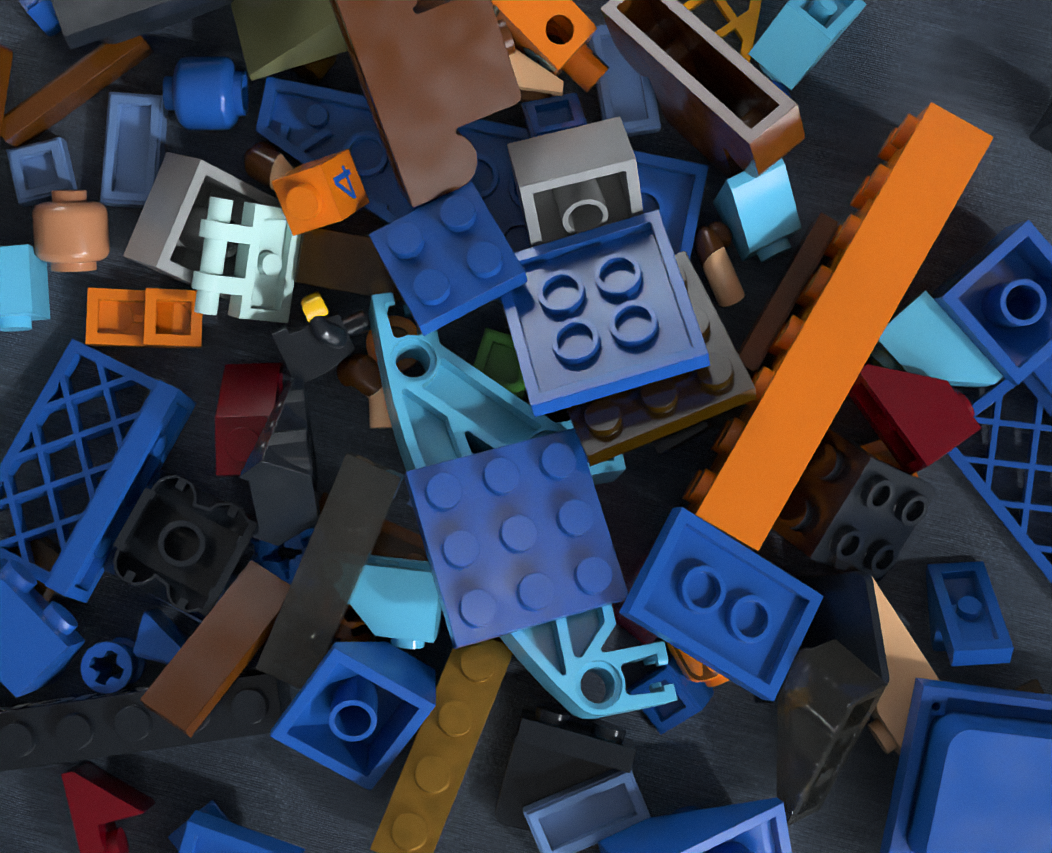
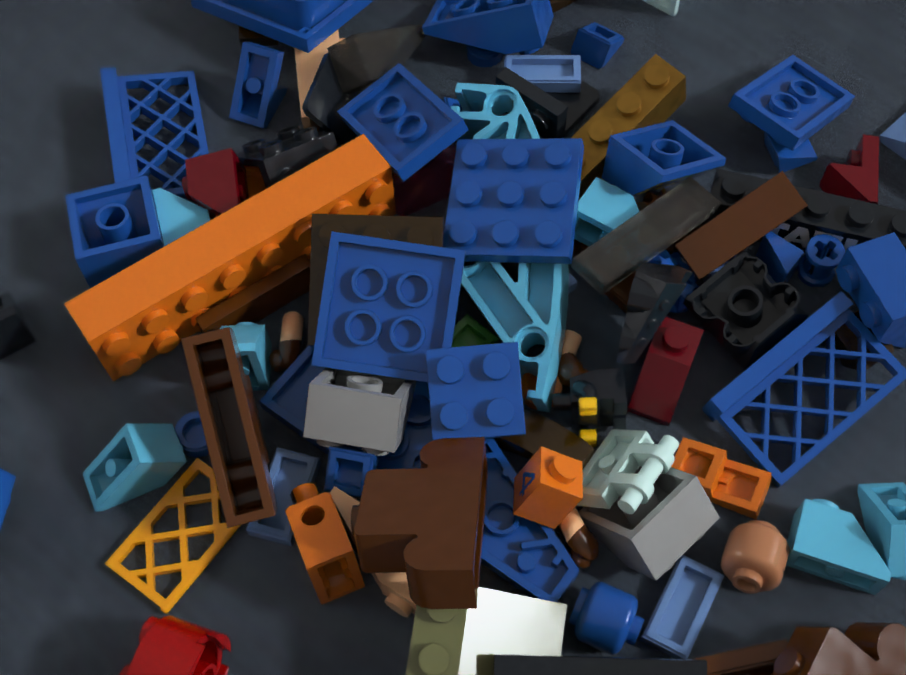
camera: 160 degrees left, 25 degrees down
(40, 169) = (762, 620): medium blue tile -> none

